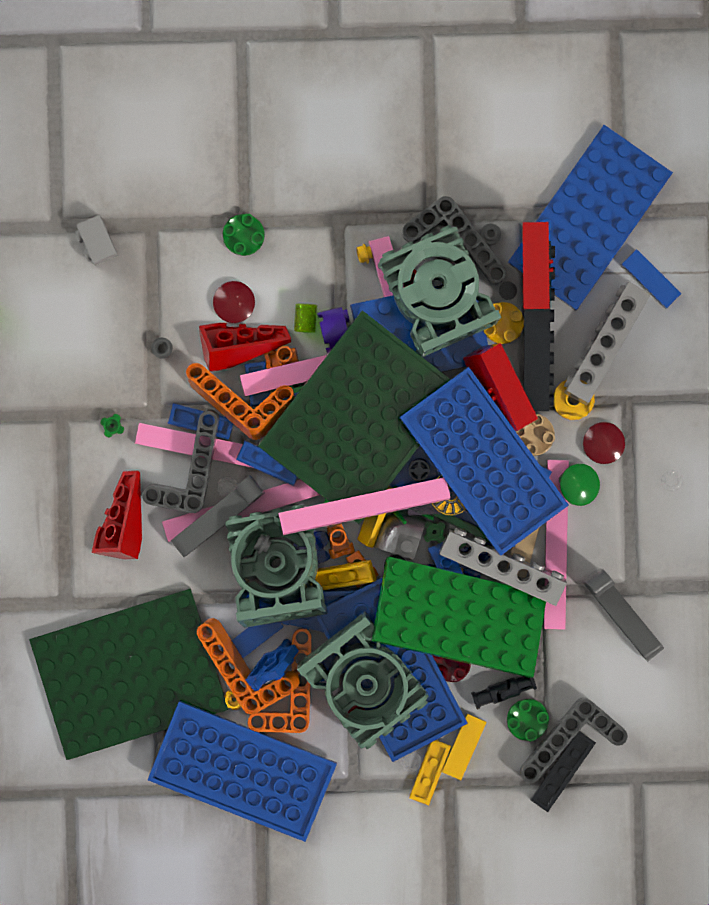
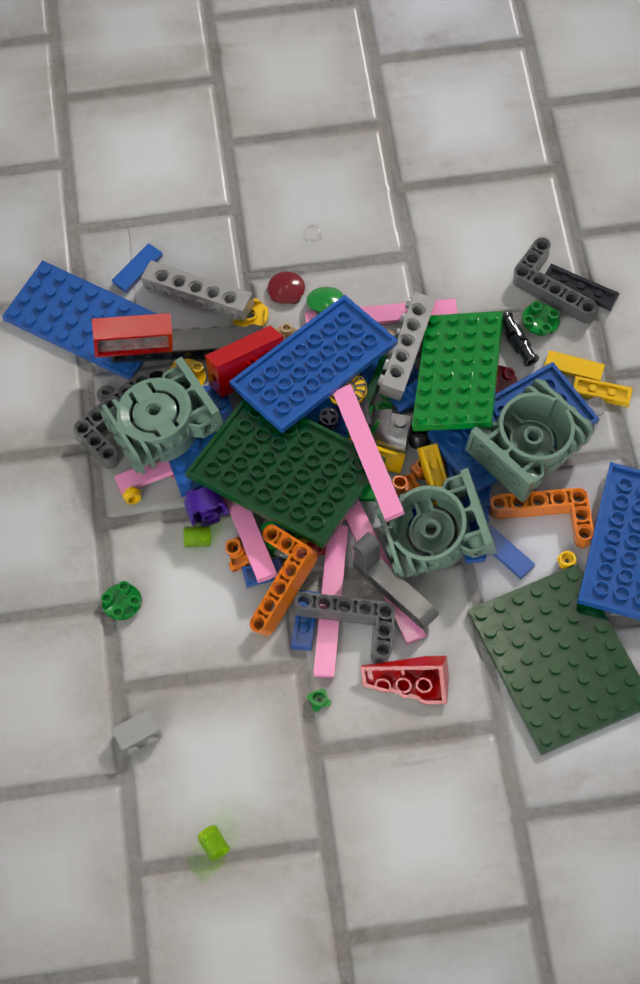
camera: 90 degrees left, 25 degrees down
(157, 343) = (237, 657): dark grey plate -> none
(231, 346) = (229, 597): red wedge -> none
(233, 677) = (542, 551): orange beam -> none
(234, 302) = (187, 603): dark red dish -> none
(258, 459) = (338, 553): blue tile -> none
(262, 543) = (415, 541): dark grey plate -> none
(272, 665) = (529, 521): blue plate -> none
(604, 591) = (416, 268): dark grey beam -> none

